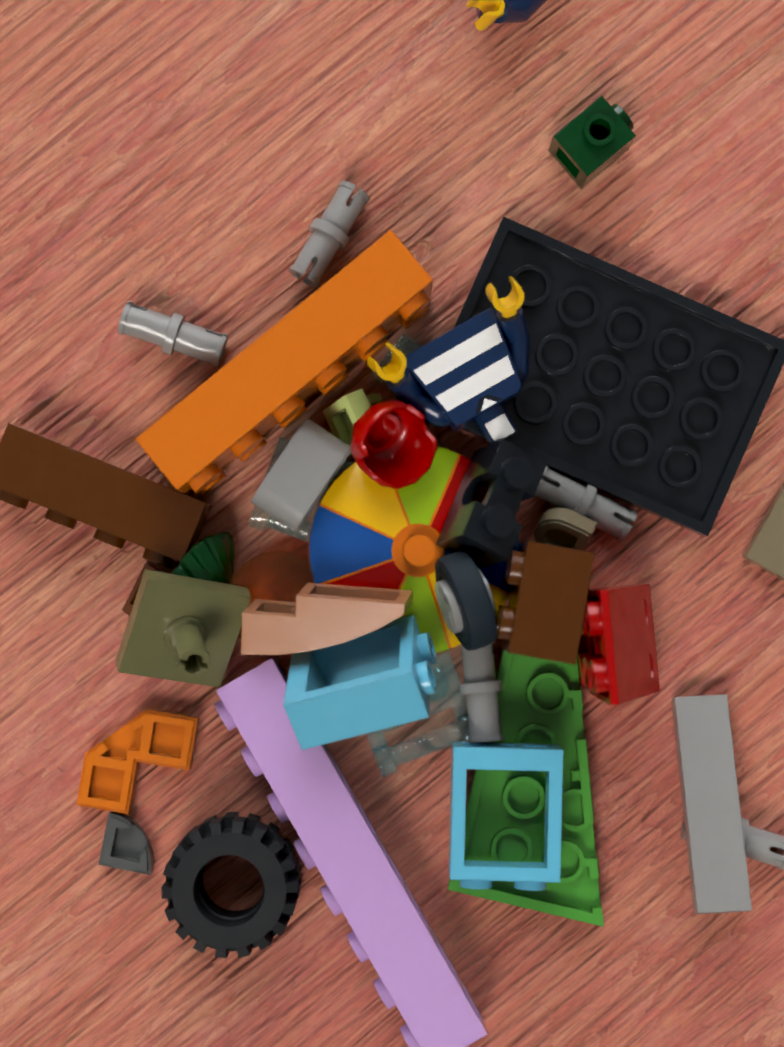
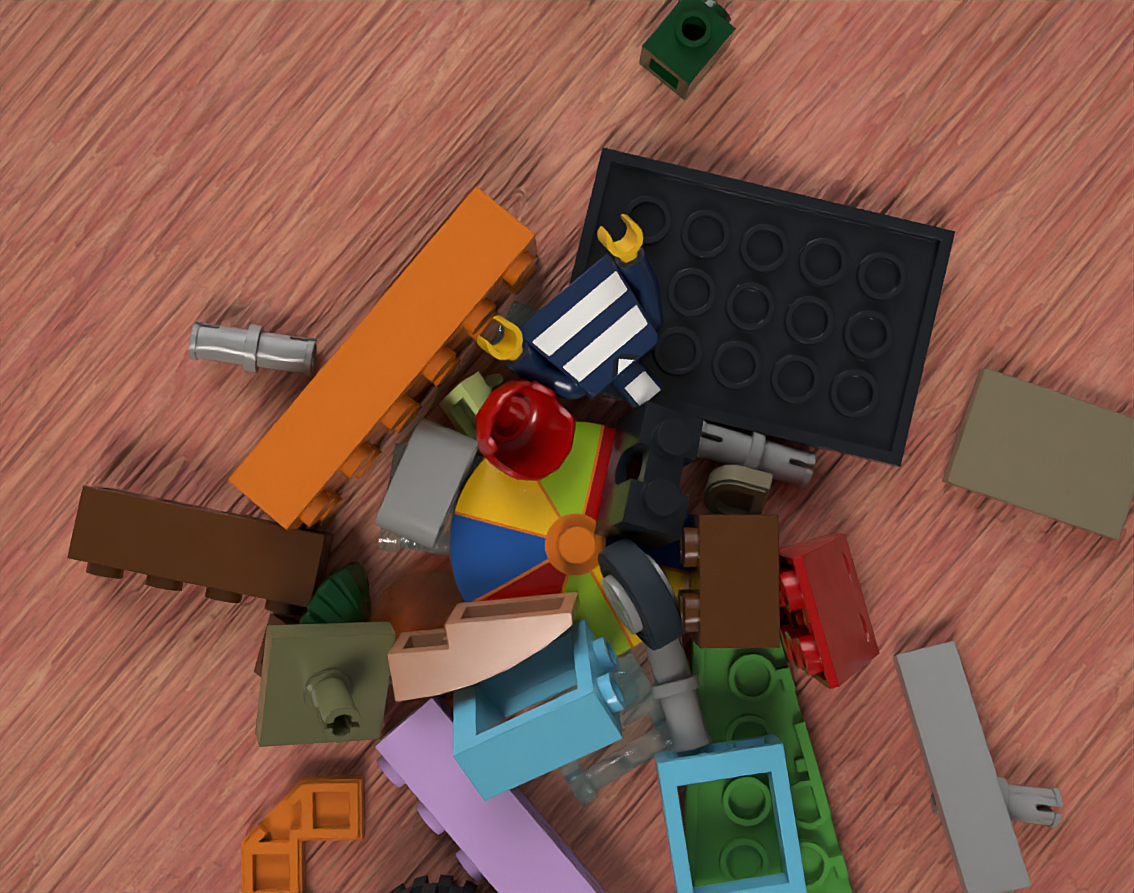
camera: 10 degrees left, 0 degrees up
(329, 233) = (409, 203): light grey pin -> none

